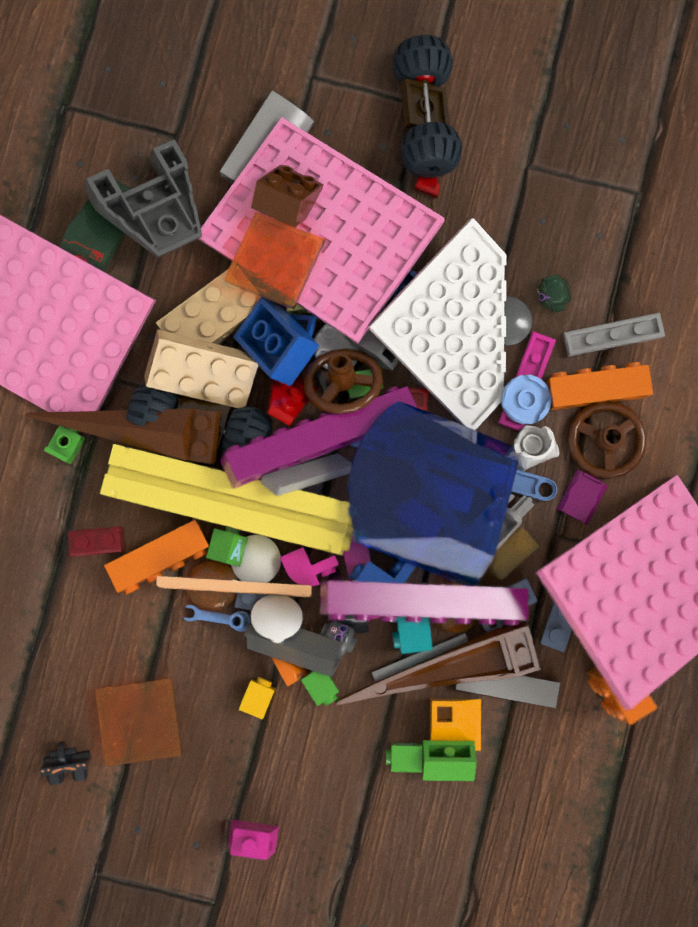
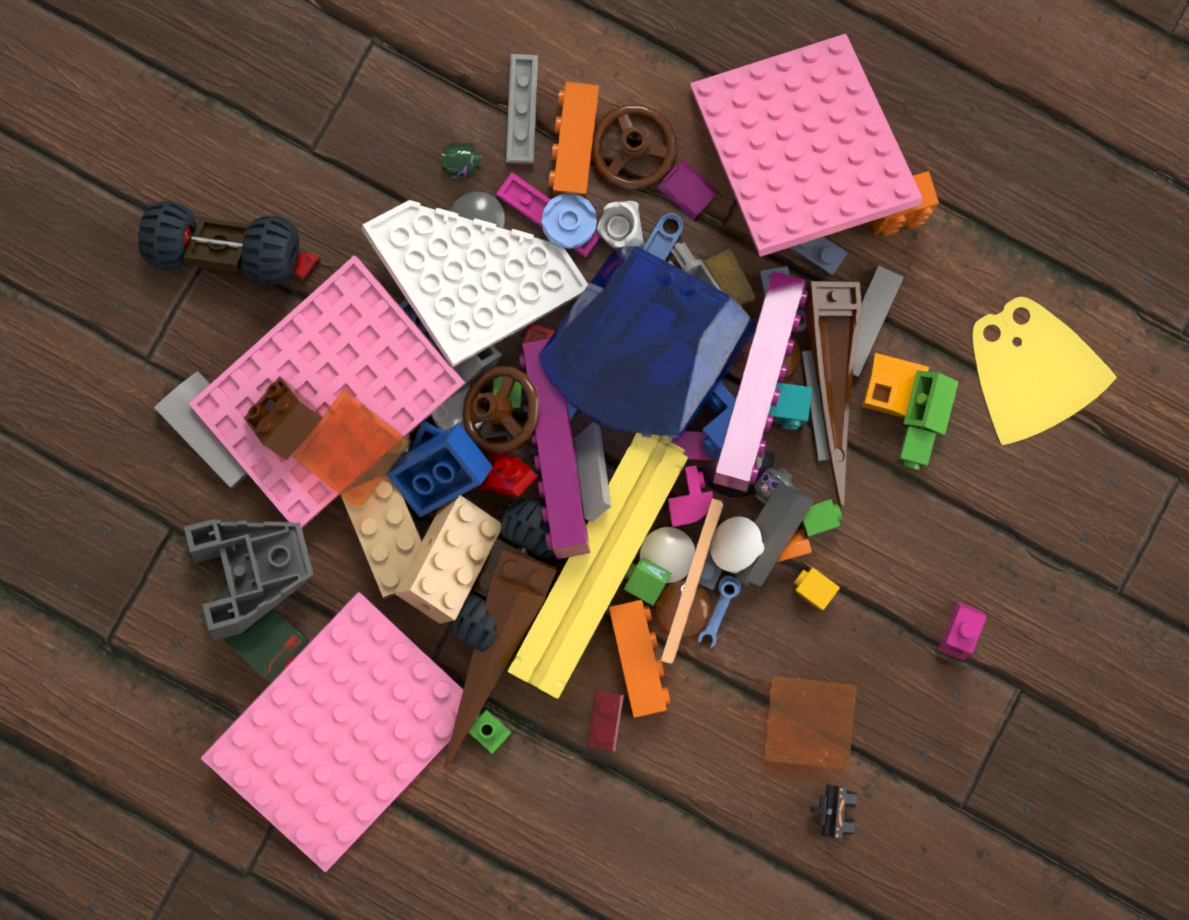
camera: 75 degrees left, 0 degrees up
(497, 855) = (1041, 379): none -> light yellow piece

